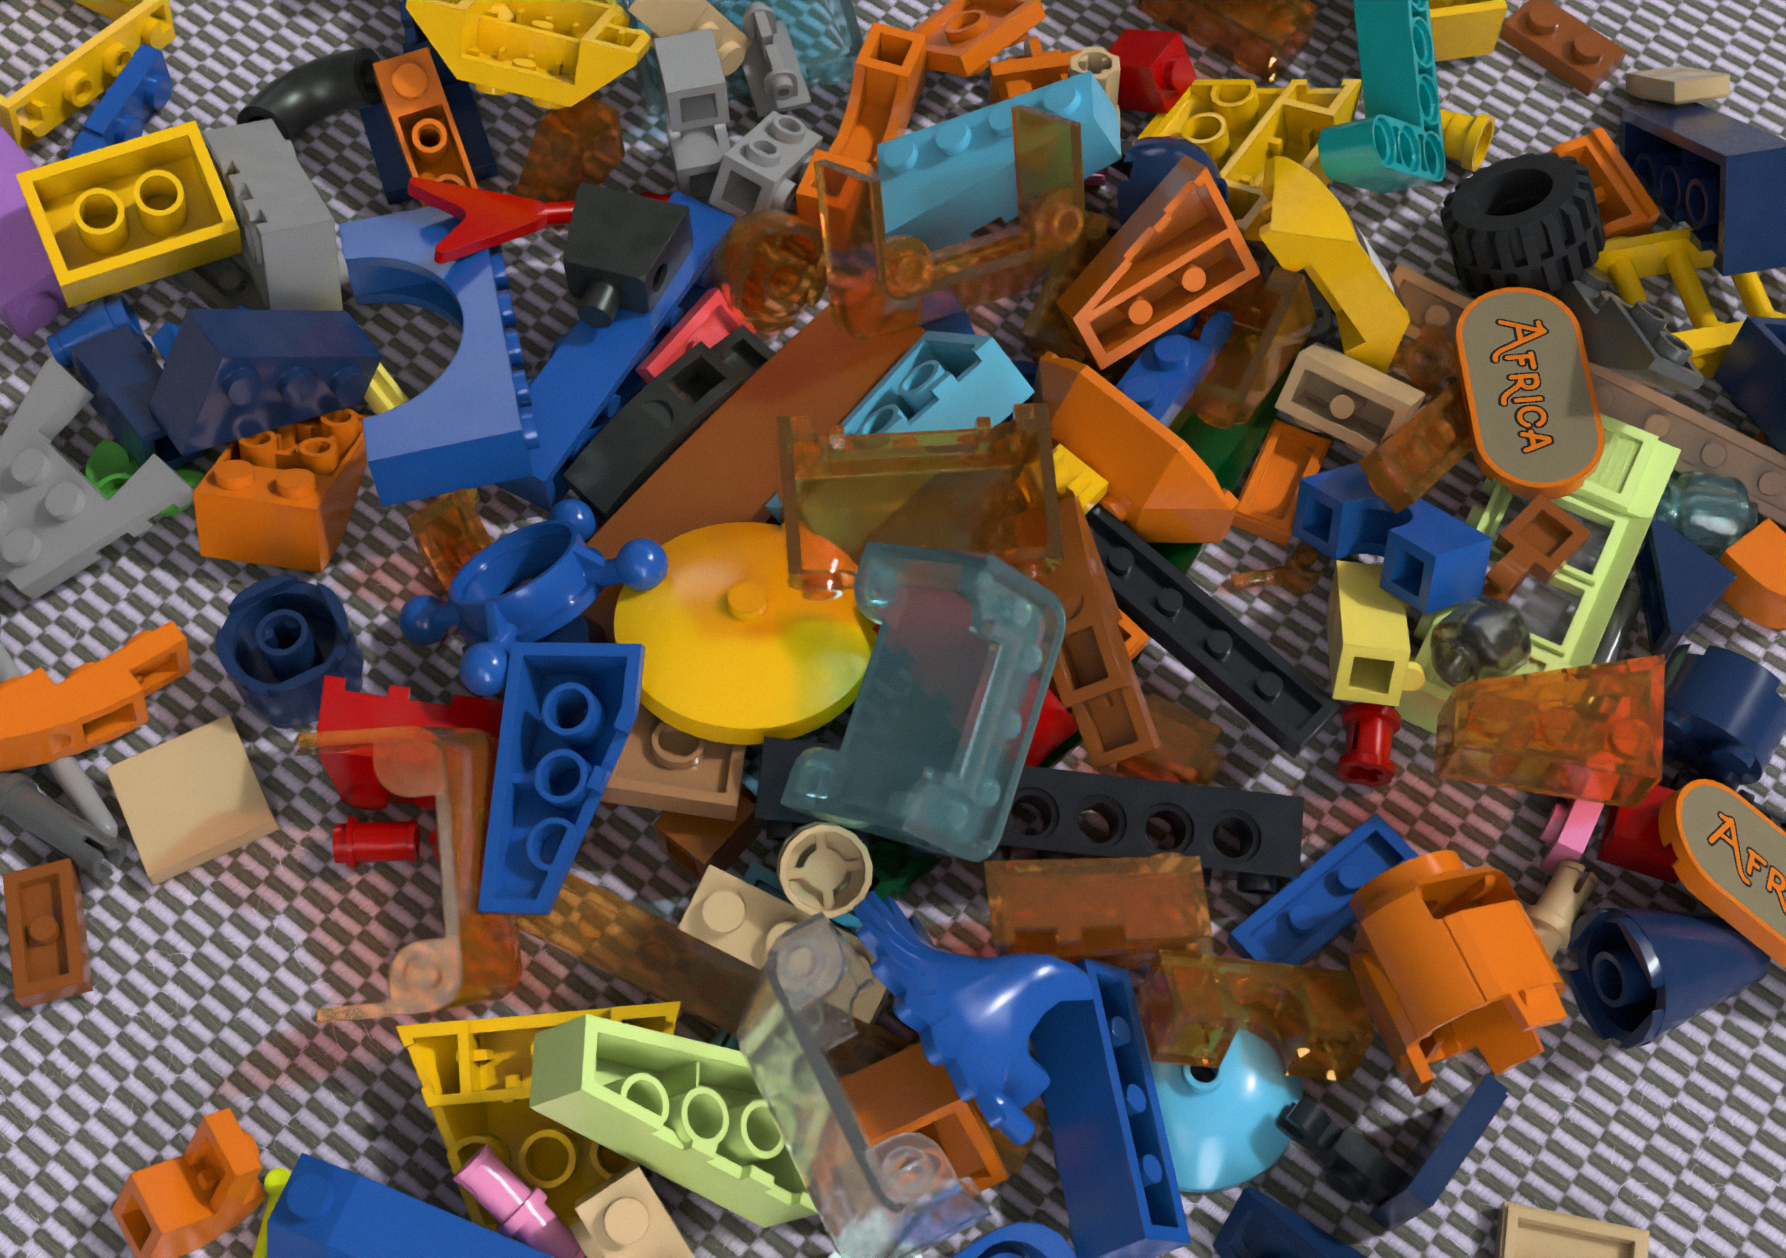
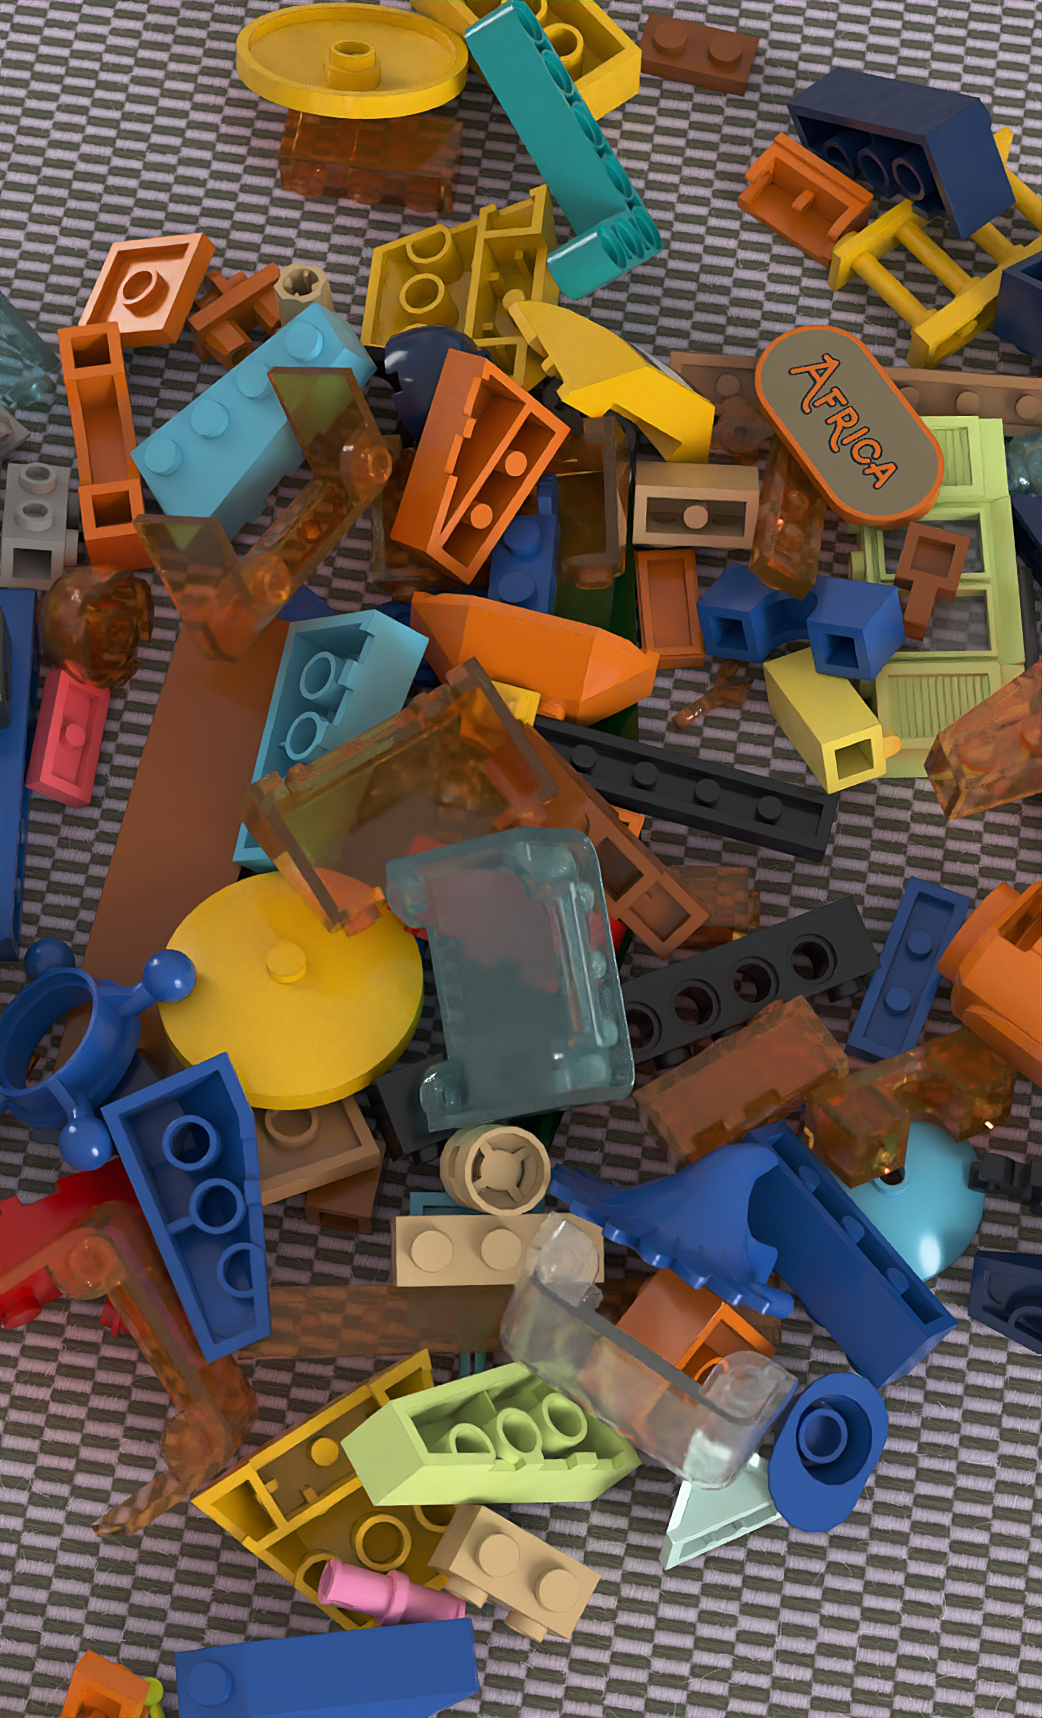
camera: 30 degrees left, 5 degrees up
(375, 842) = (51, 1350): red pin -> none
(662, 419) = (86, 821): pearl dark grey slope -> none
(1152, 70) = (344, 250): red brick -> none
(1368, 744) = (872, 817): red bush -> none
(1467, 137) = (661, 192): yellow piece -> none
(1480, 641) = (930, 686): clear smoke head -> none
(1523, 224) = (762, 264): black tyre -> none
(1627, 336) = (902, 338): dark grey slope -> none
(1678, 84) = (825, 57): tan tile -> none

